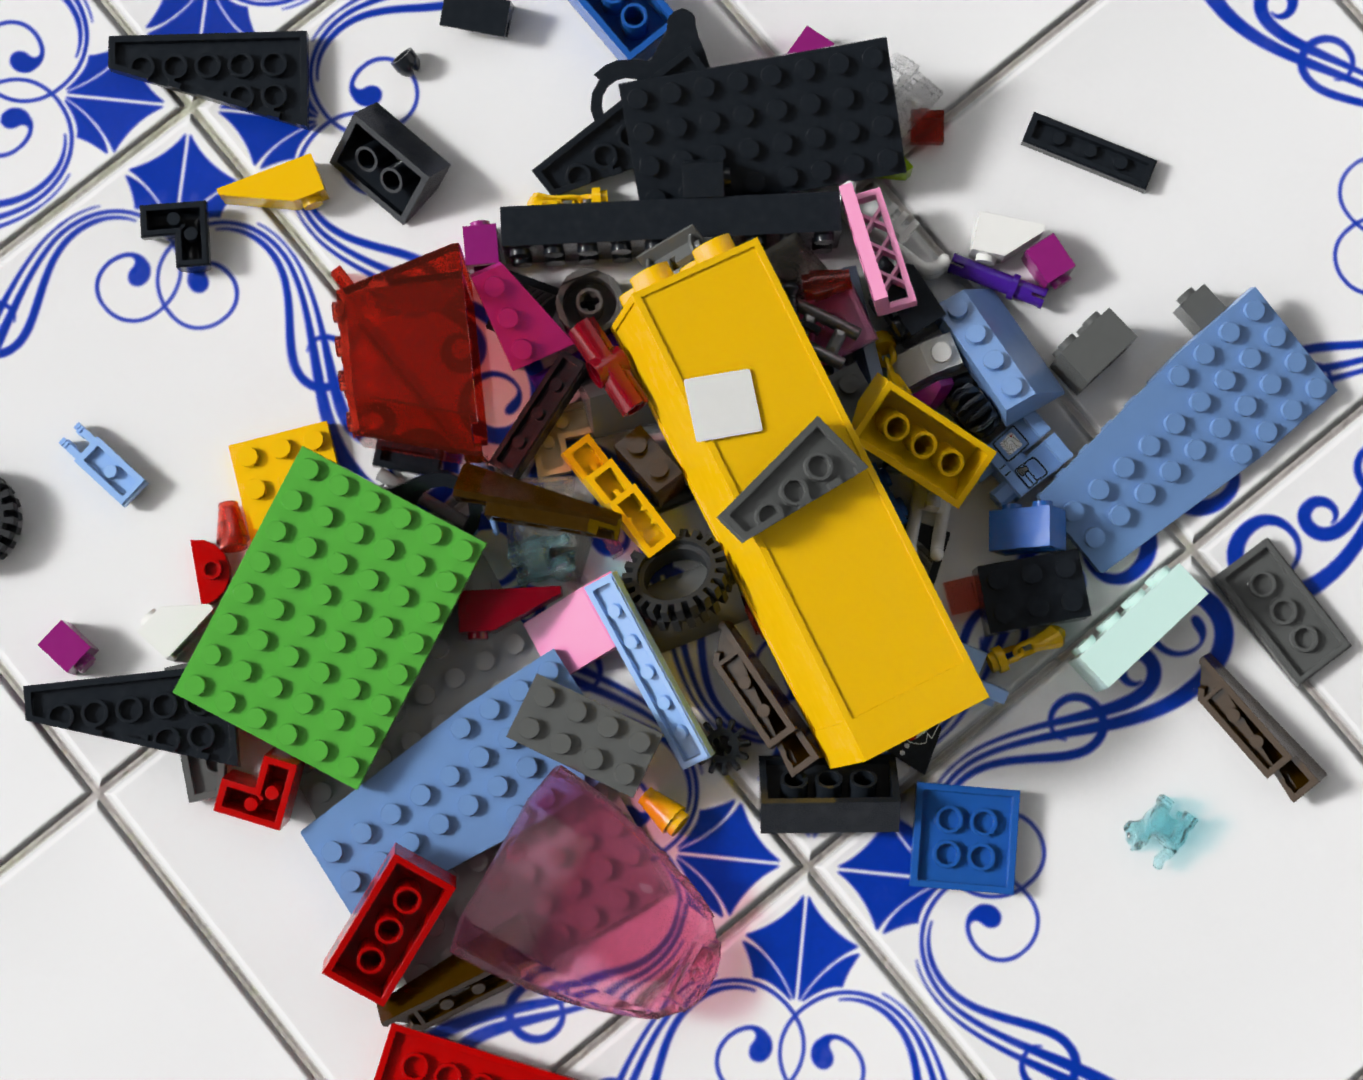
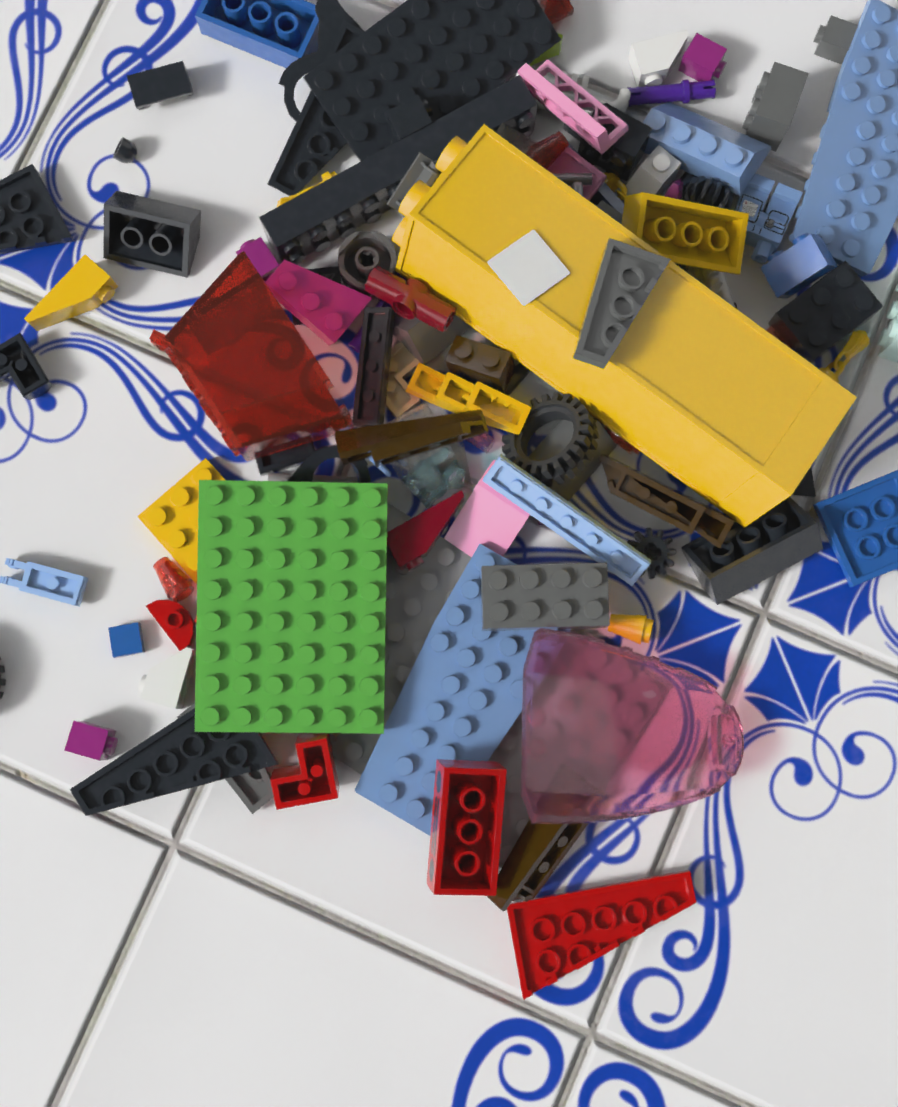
camera: 25 degrees left, 0 degrees up
(154, 564) = (126, 640): none -> blue tile

